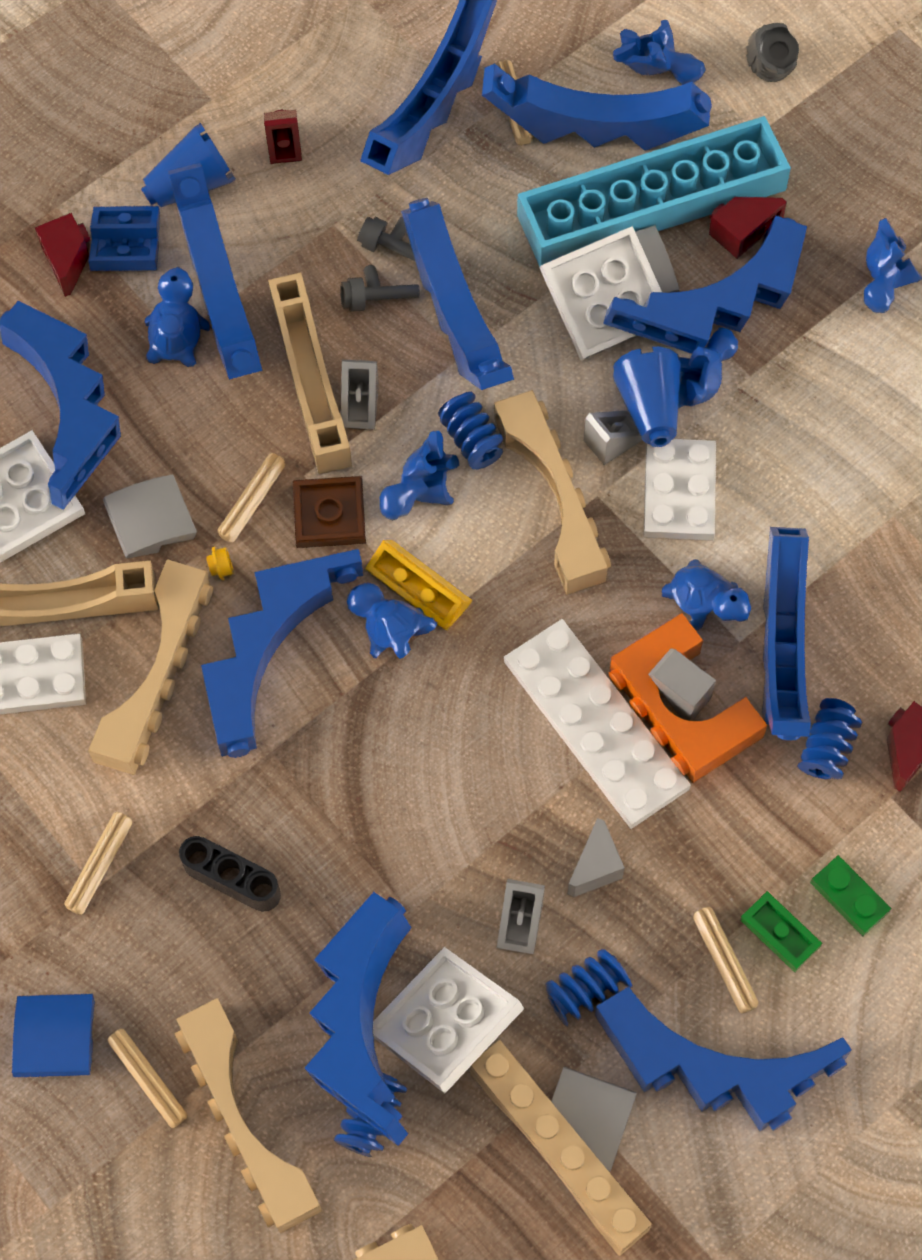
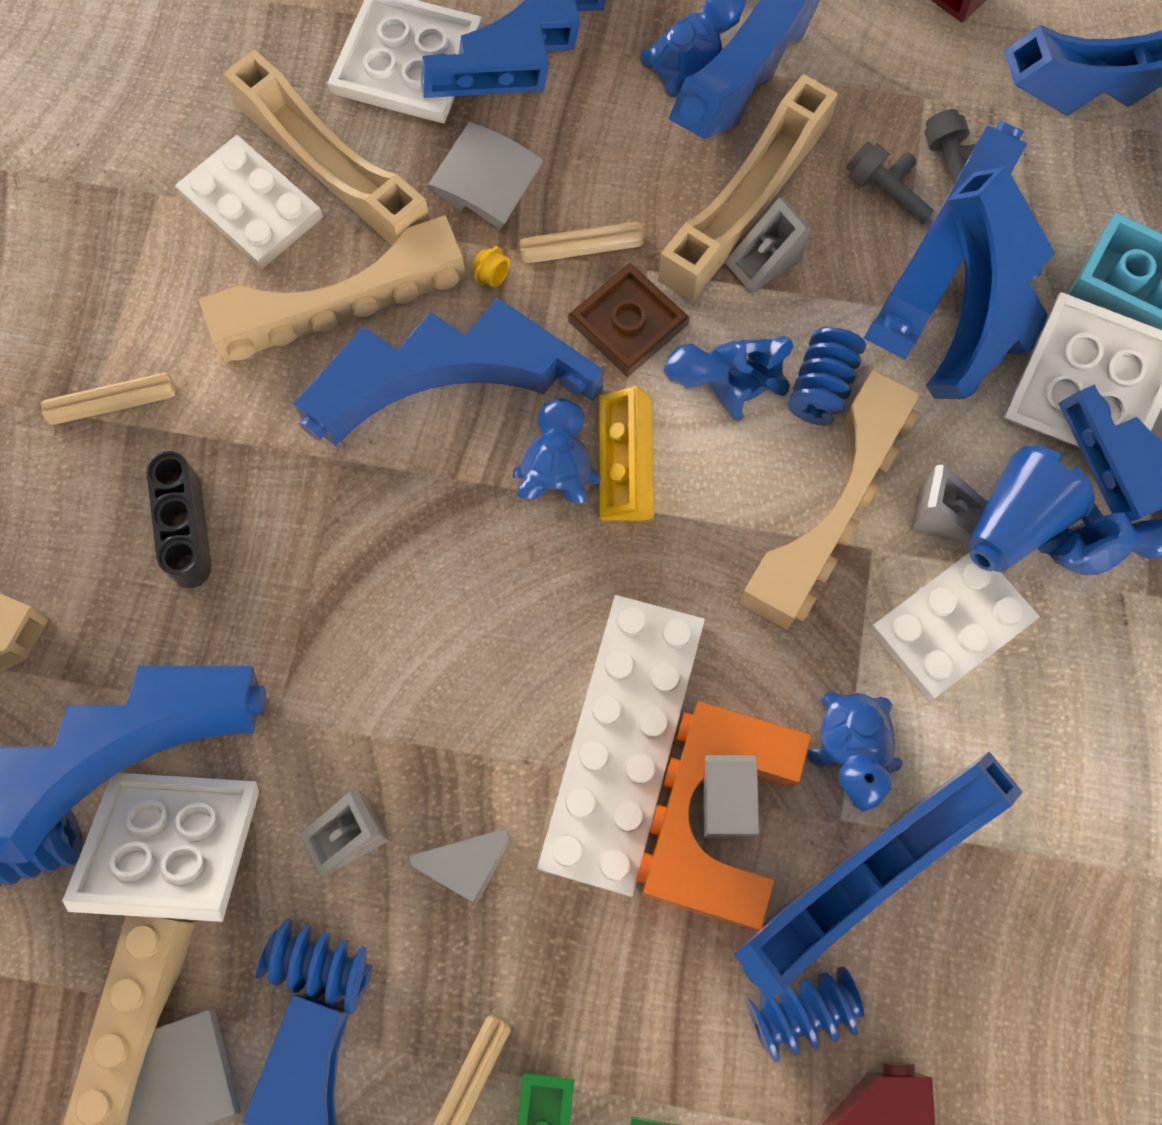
camera: 50 degrees right, 5 degrees up
(517, 303) = (1001, 256): none -> blue arch

